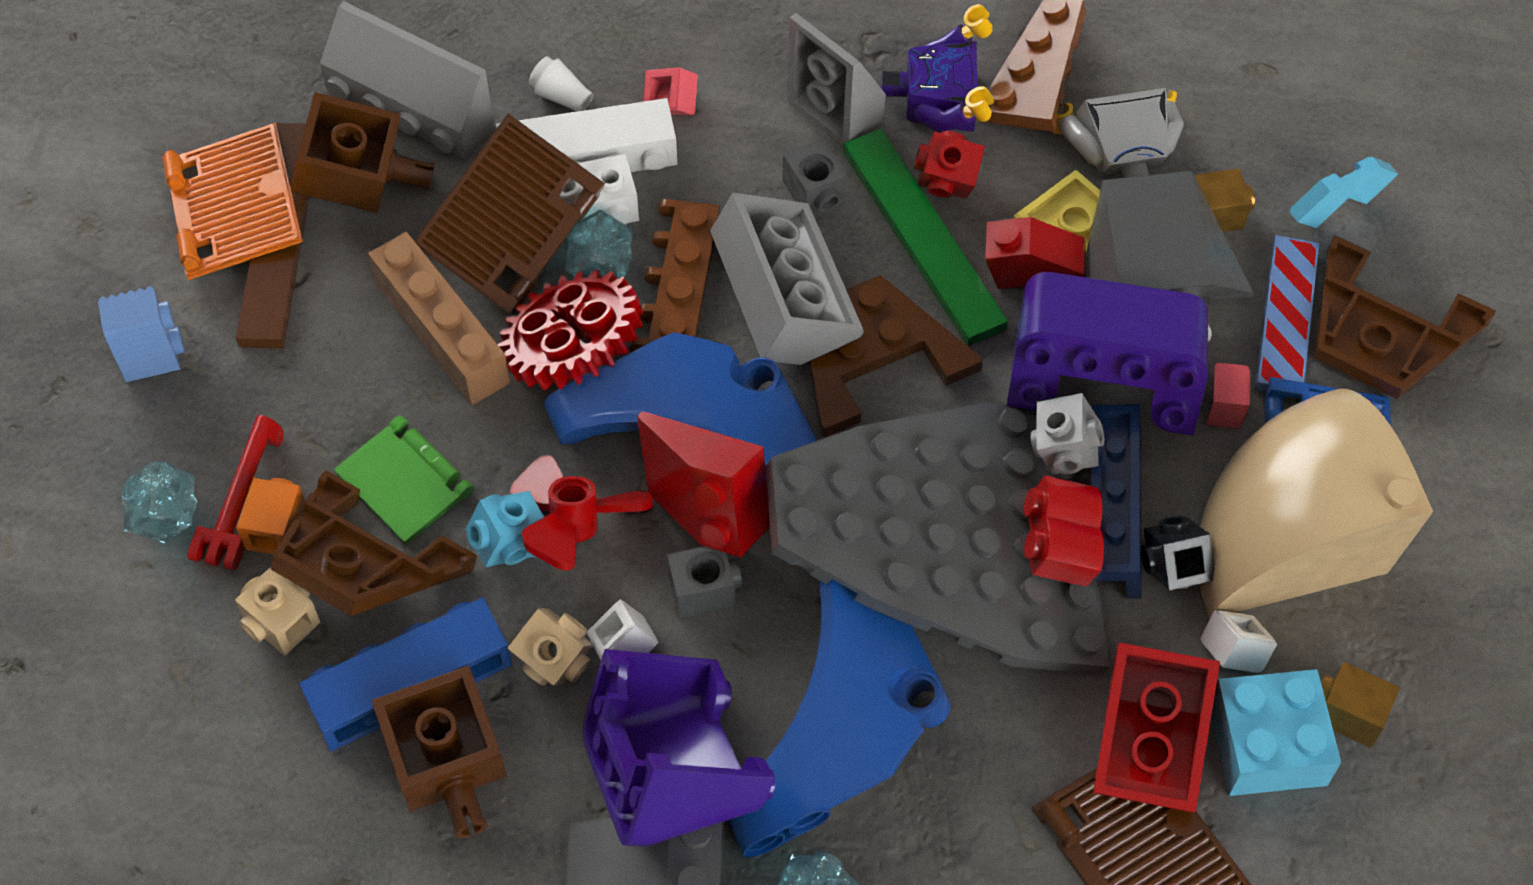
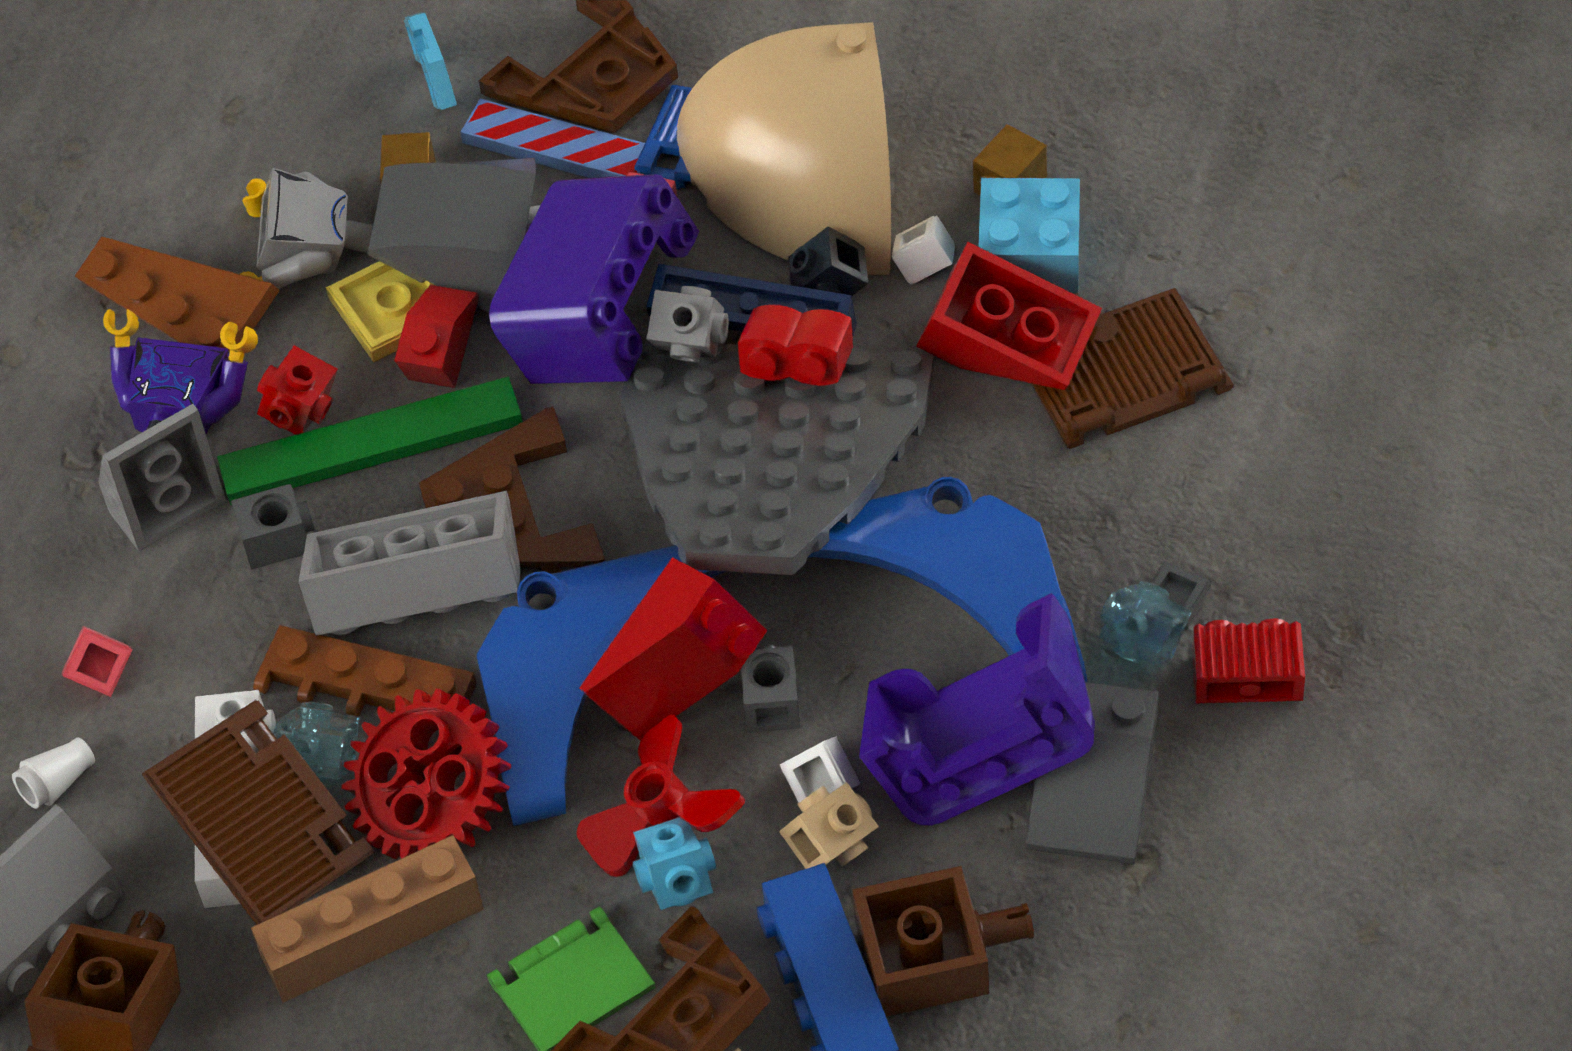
camera: 75 degrees left, 5 degrees down
(635, 129) = (153, 724): white brick -> none

